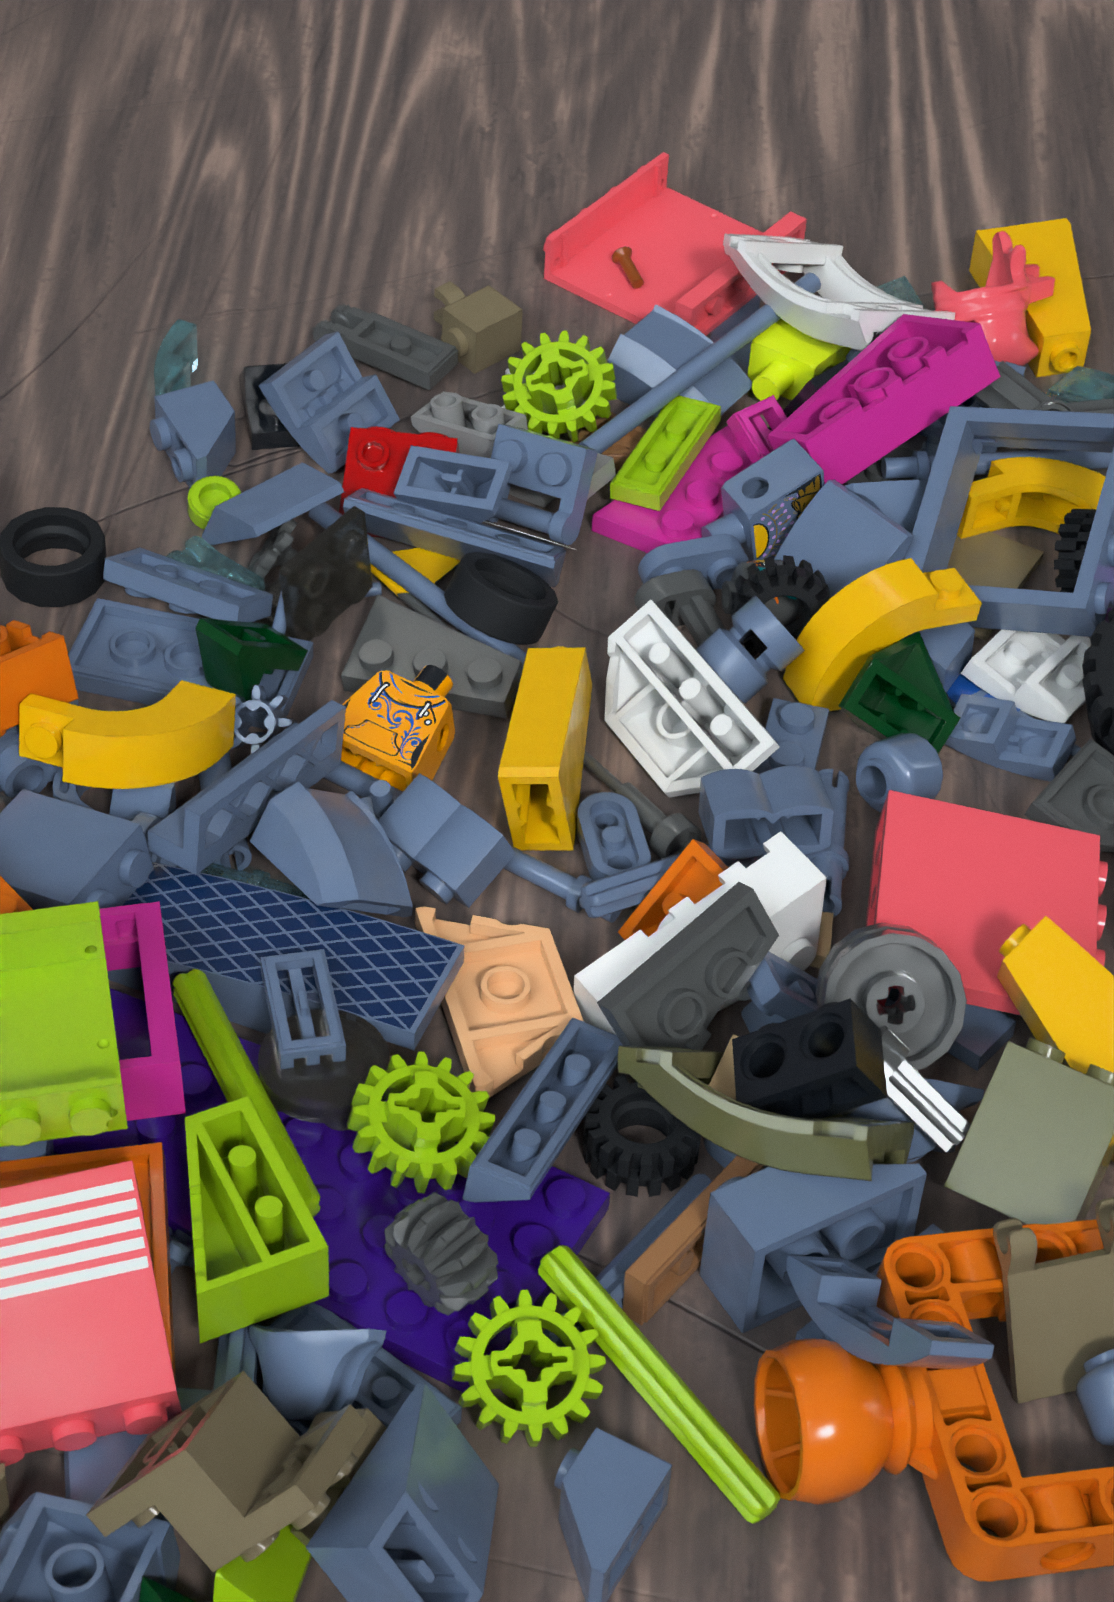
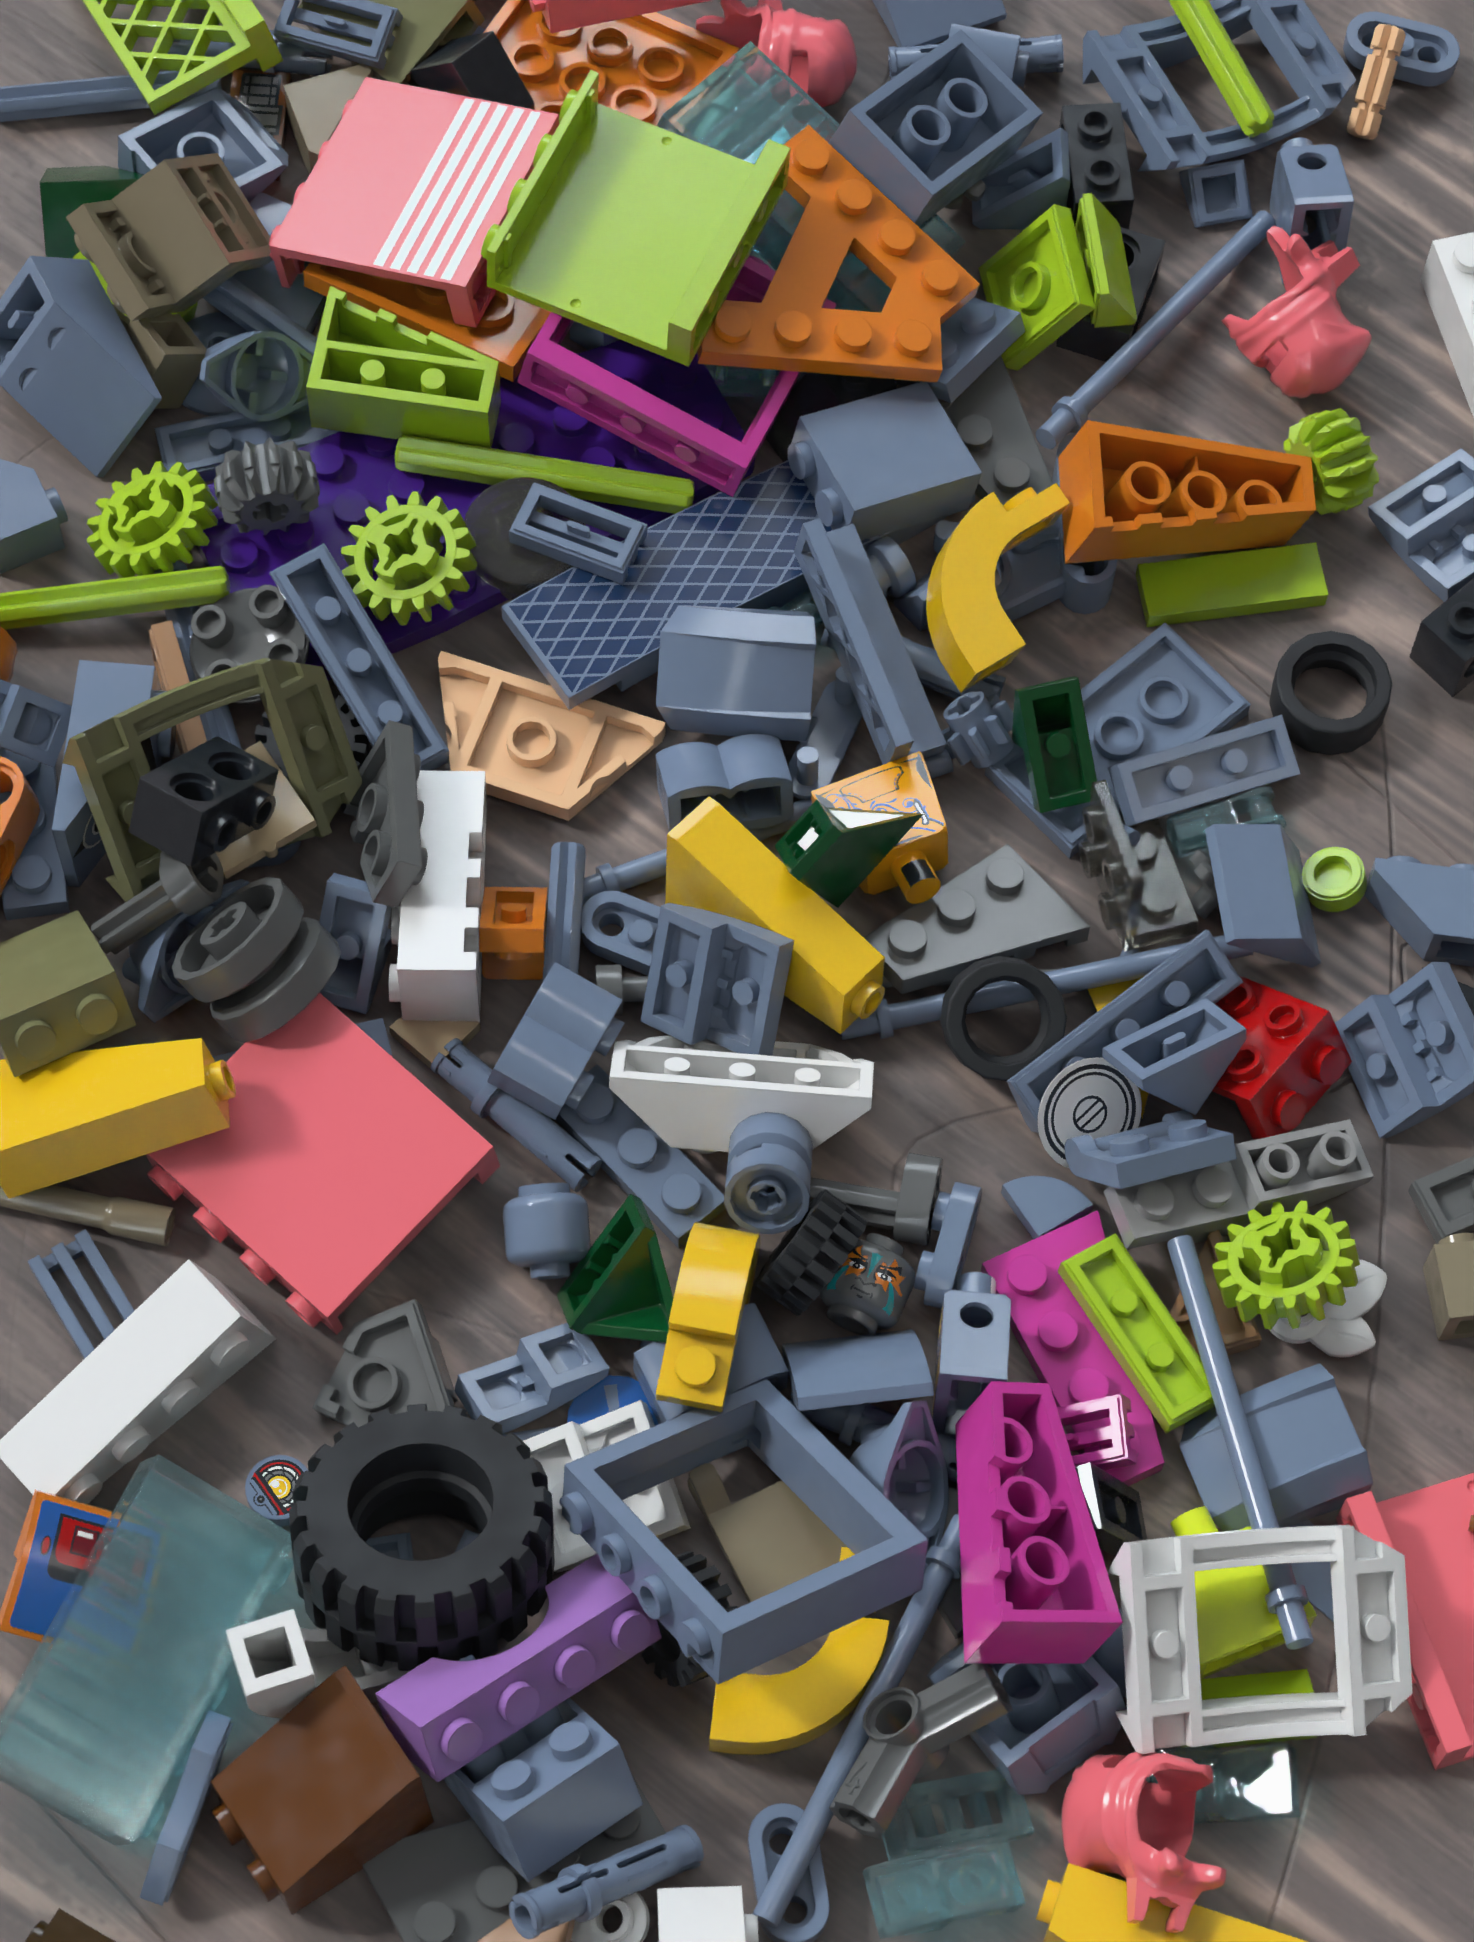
camera: 125 degrees right, 20 degrees up
(460, 707) = (840, 847): none -> dark green slope
(597, 1208) = (245, 629): none -> dark grey dish
(612, 547) = (1045, 1203): none -> sand blue tile
(627, 741) = (716, 980): none -> sand blue slope

